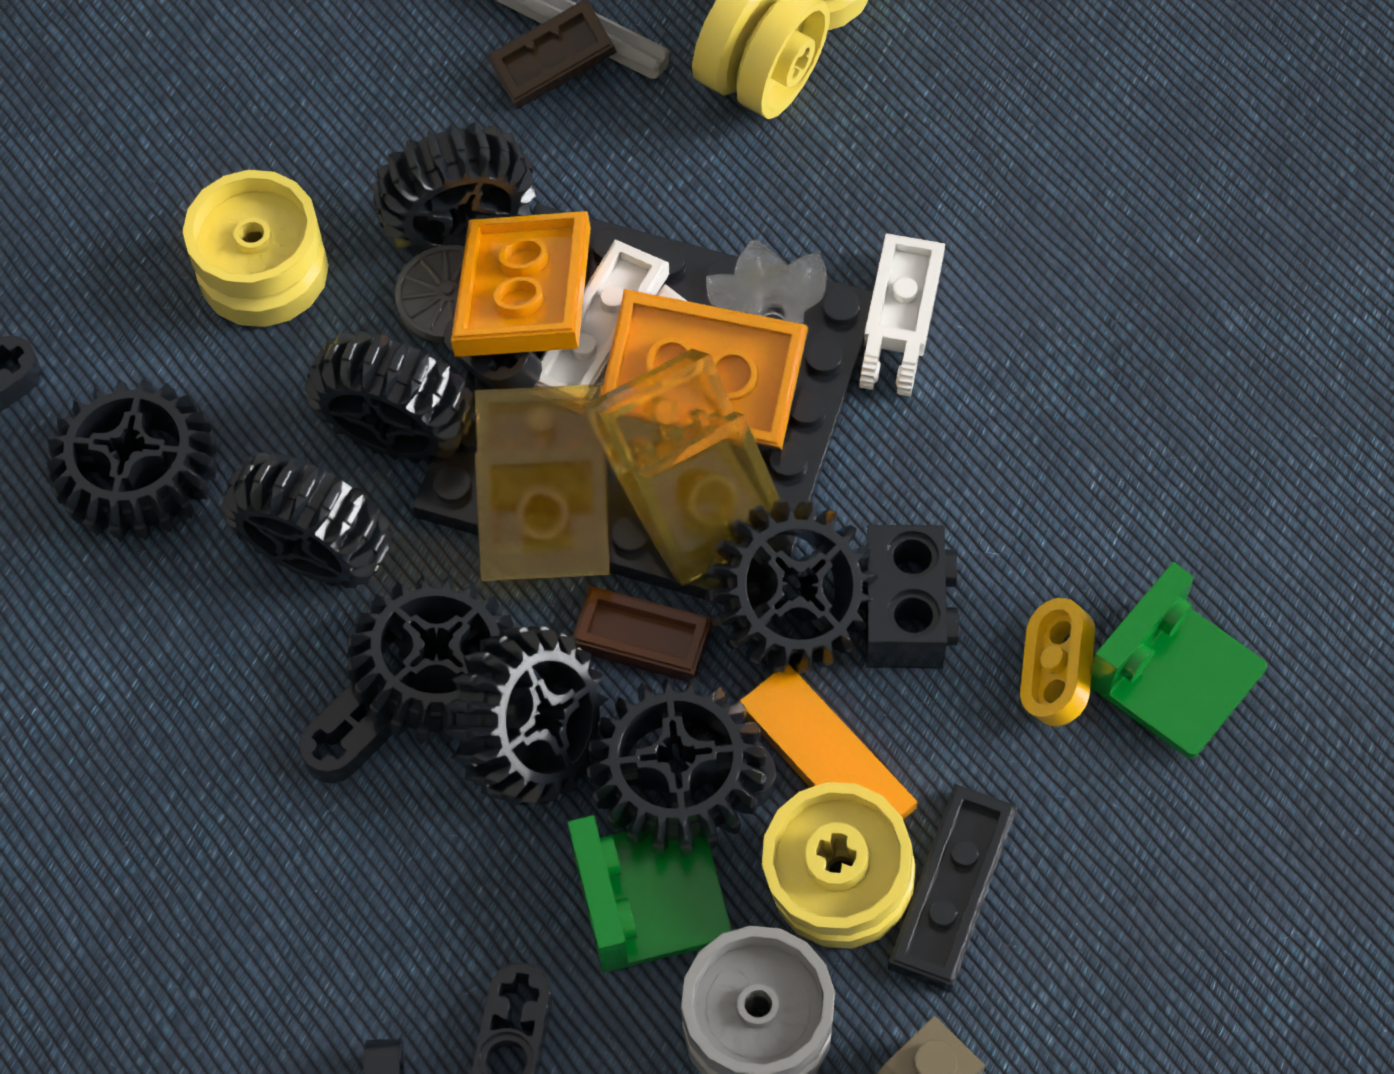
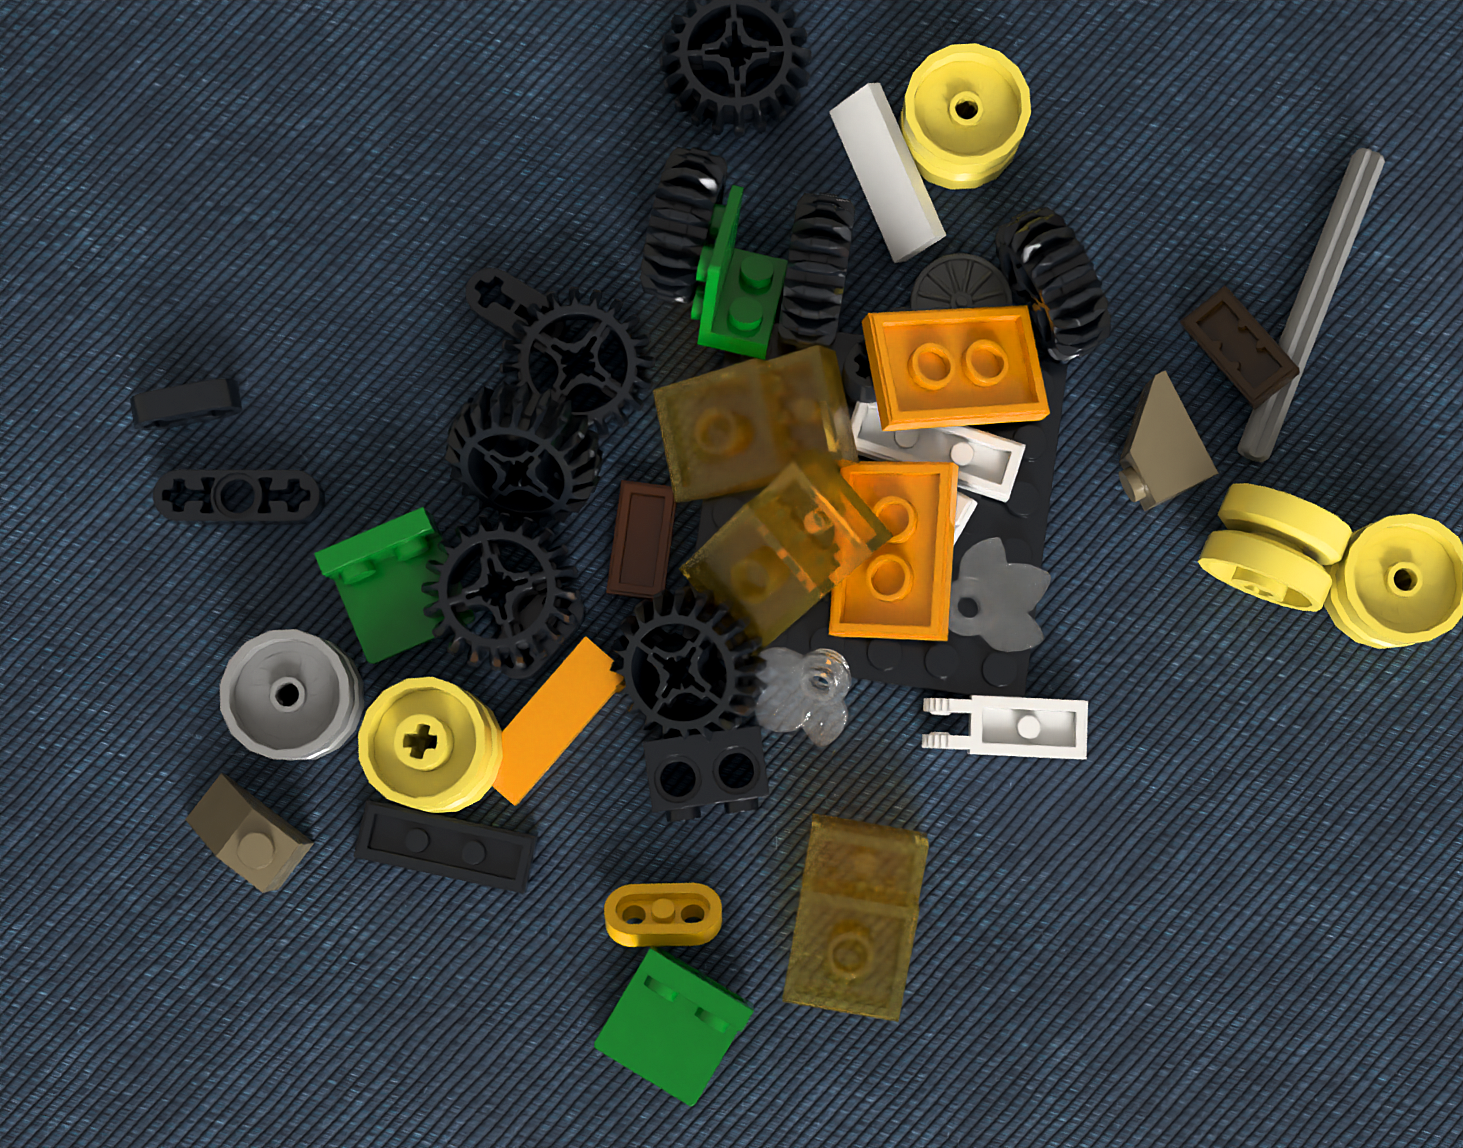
camera: 80 degrees right, 20 degrees up
(286, 332) = (887, 172): none -> white tile
(405, 482) = (740, 288): none -> green bracket
(637, 132) = (1162, 448): none -> dark tan slope
(849, 488) = (800, 700): none -> clear plate
(1080, 478) = (855, 917): none -> clear yellow slope

